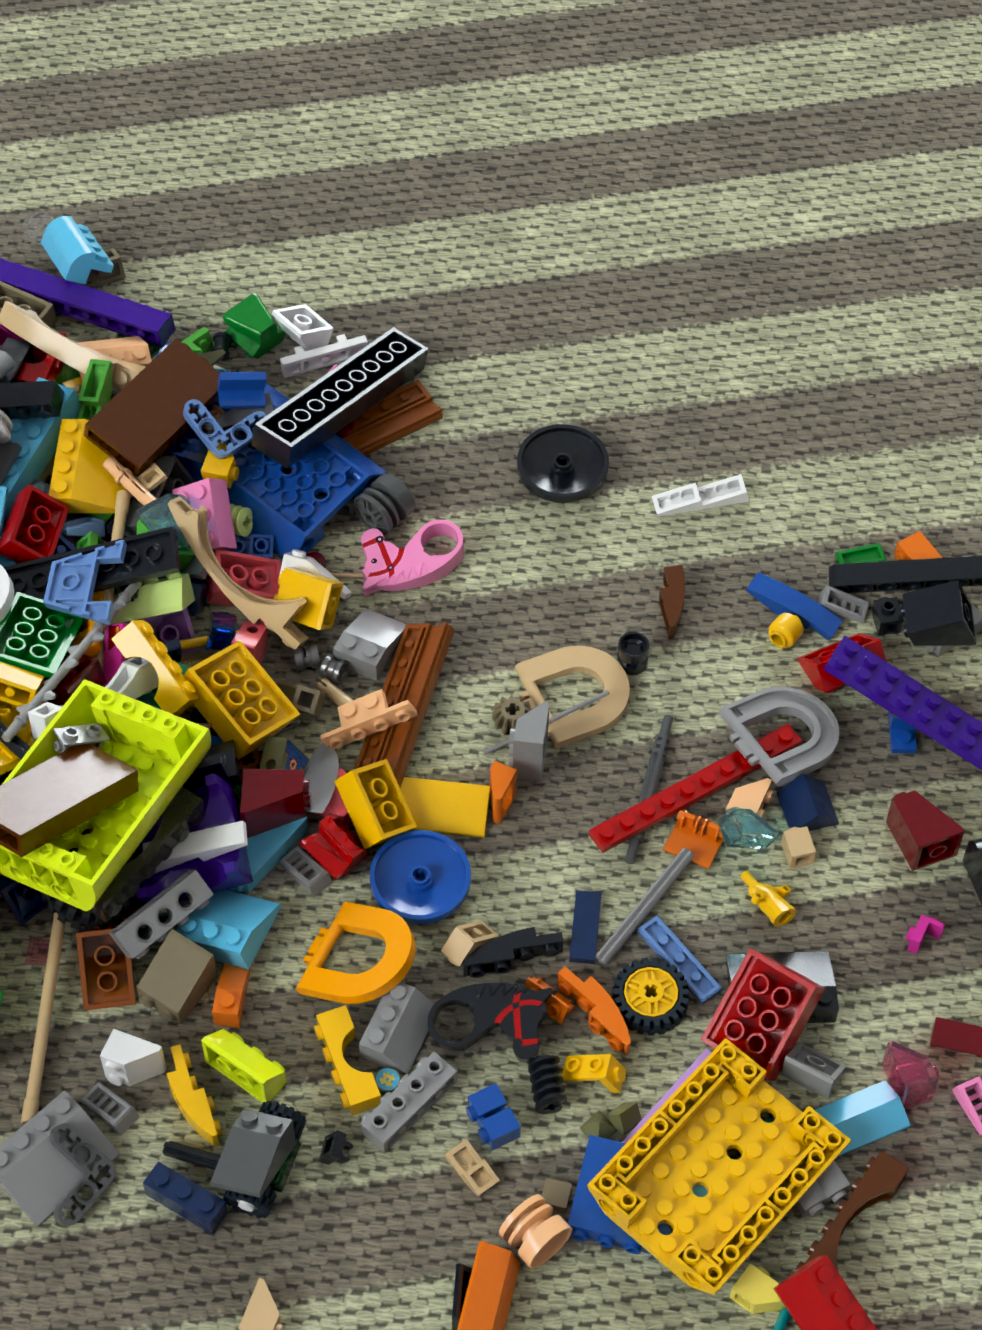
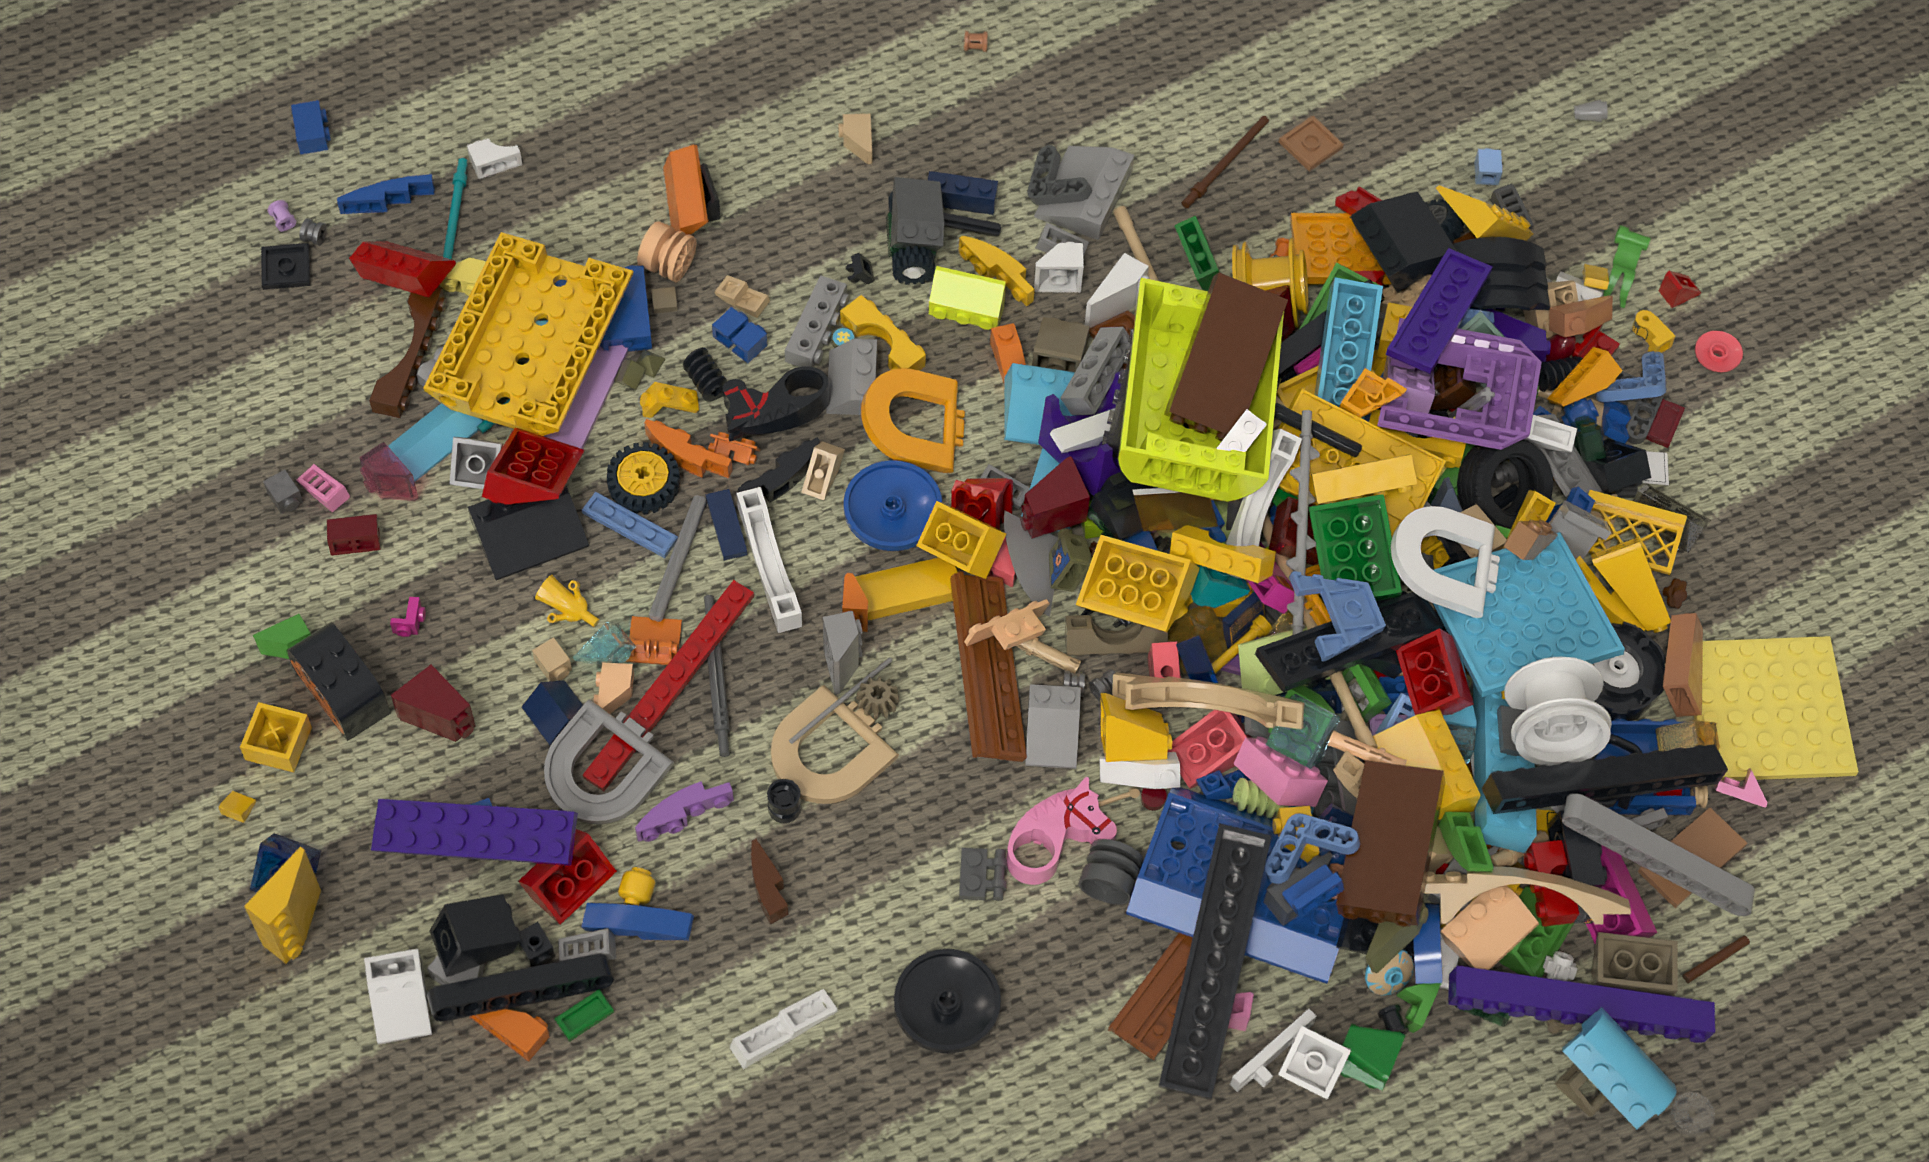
camera: 155 degrees right, 5 degrees up
(73, 332) = (1560, 966): none -> white gear
(90, 1011) = (1117, 291): none -> white slope
(495, 554) = (973, 874): none -> dark grey plate
(560, 864) = (771, 570): none -> white arch
(733, 681) = (672, 812): none -> medium lavender slope

